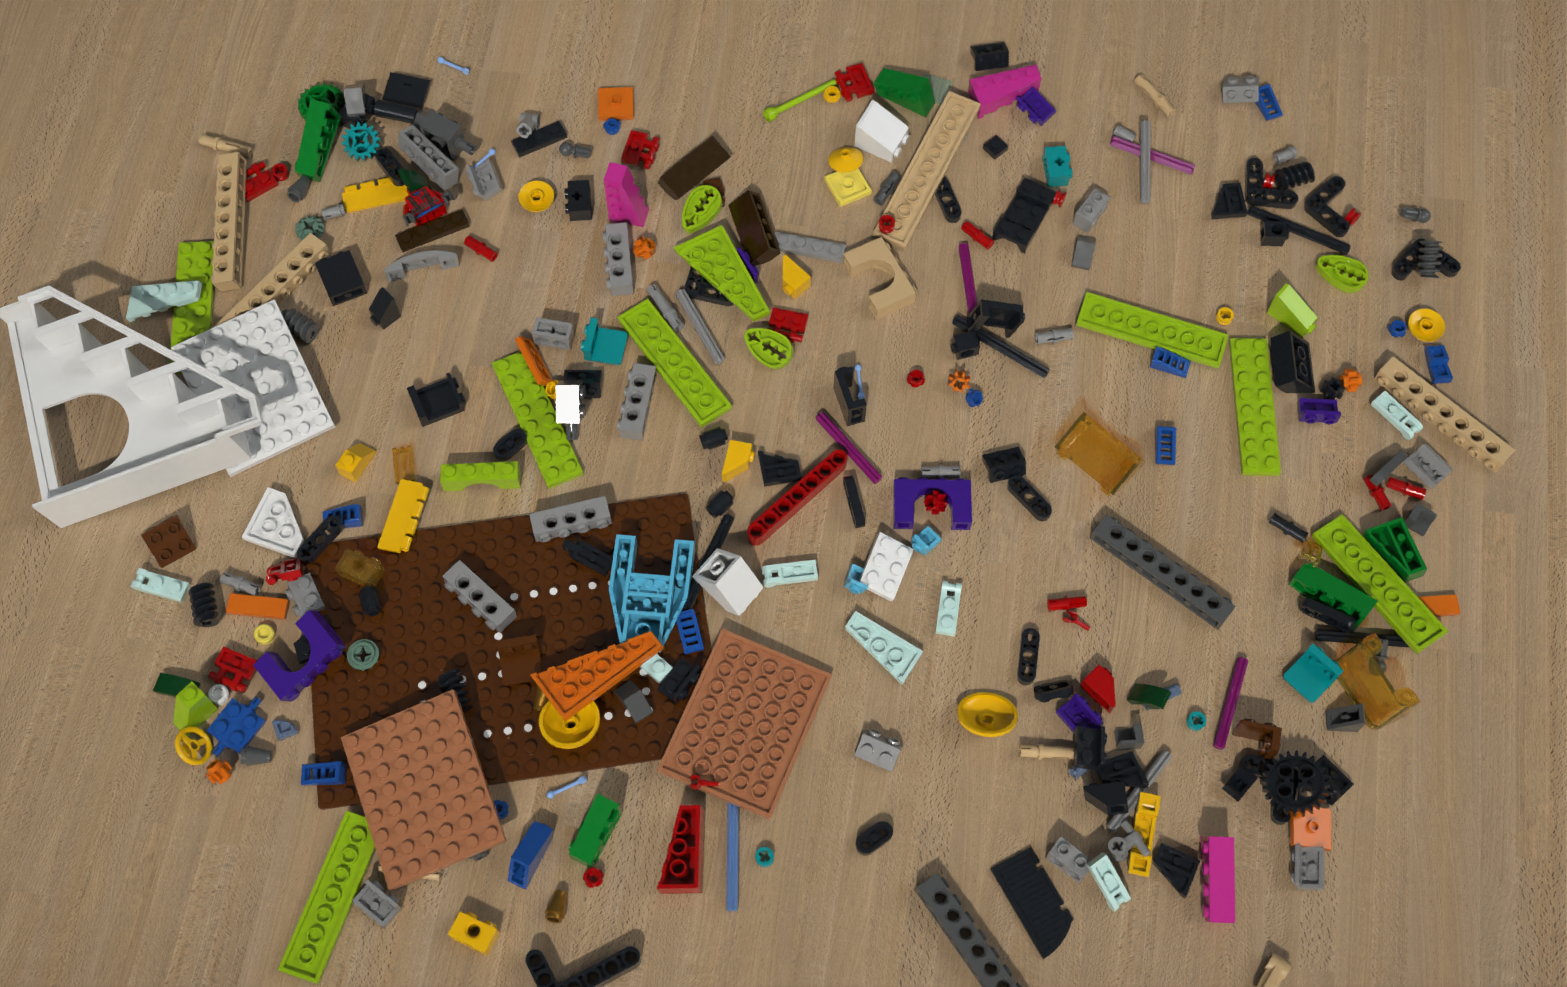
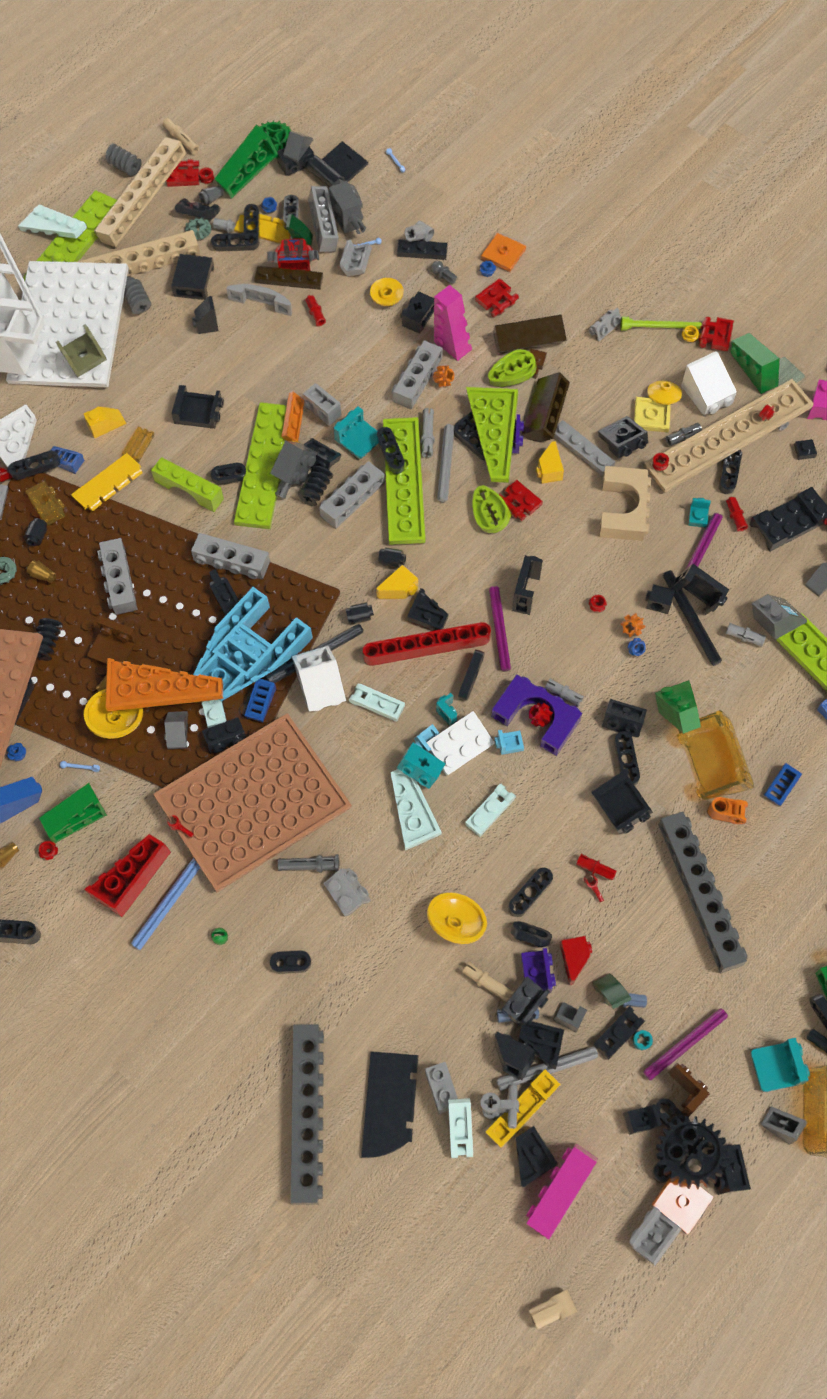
camera: 35 degrees right, 0 degrees up
(186, 200) = (123, 160): none -> dark grey piece
(293, 394) = (84, 343): none -> olive hose
(296, 210) = (197, 209): none -> black plate
(358, 147) = (280, 174): teal gear -> none
(363, 166) = (269, 205): none -> blue plate
(364, 209) = (248, 234): none -> black beam
(403, 634) = (40, 571): none -> pearl gold cone
(599, 412) = (314, 485): none -> black piece
(649, 349) = (389, 457): none -> black beam
(754, 117) = (606, 324): none -> light grey hinge
(758, 857) = (198, 922): teal bush -> none
(800, 858) = (219, 940): none -> green hinge
(838, 741) = (319, 863): none -> dark grey pin
(839, 218) = (624, 437): none -> black plate
(854, 546) = (447, 712): none -> teal bracket
(861, 395) = (541, 592): light blue hinge -> none
(868, 605) = (421, 765): none -> teal brick
(946, 252) = (699, 512): none -> teal bracket
(949, 132) = (767, 412): none -> red plate
(1046, 428) = (679, 706): none -> green wedge
(1053, 537) = (622, 803): none -> black panel
(1069, 306) = (776, 615): none -> dark grey slope
(1141, 491) = (732, 810): none -> orange piece
(1174, 727) = (619, 1032): none -> black plate

